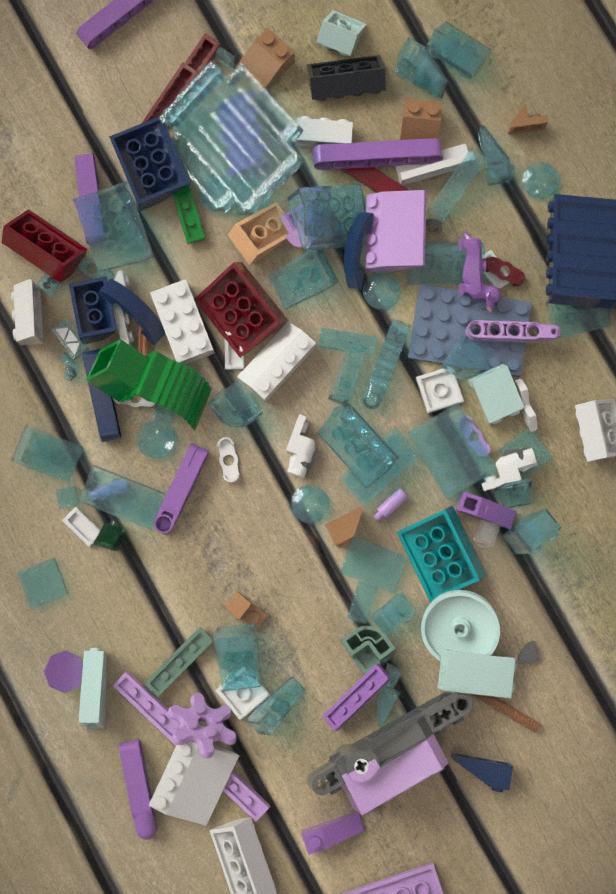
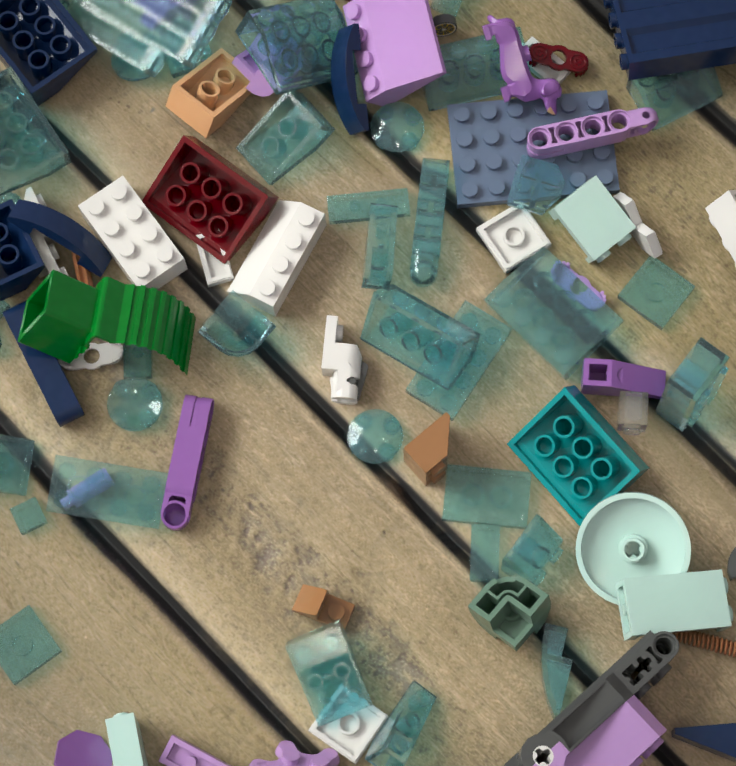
camera: 10 degrees left, 10 degrees down
(82, 526) = (60, 551): white tile -> none
(110, 536) = (103, 551): clear green slope -> none
(179, 662) = (245, 703): sand green plate -> none
(188, 216) = (105, 95): green plate -> none
(226, 447) = (236, 391): white piece -> none
(356, 697) = (512, 683): medium lavender plate -> none
(390, 505) = (488, 407): lavender cylinder -> none
(509, 467) = (638, 312): white plate -> none
(514, 493) = (656, 344): clear light blue slope -> none

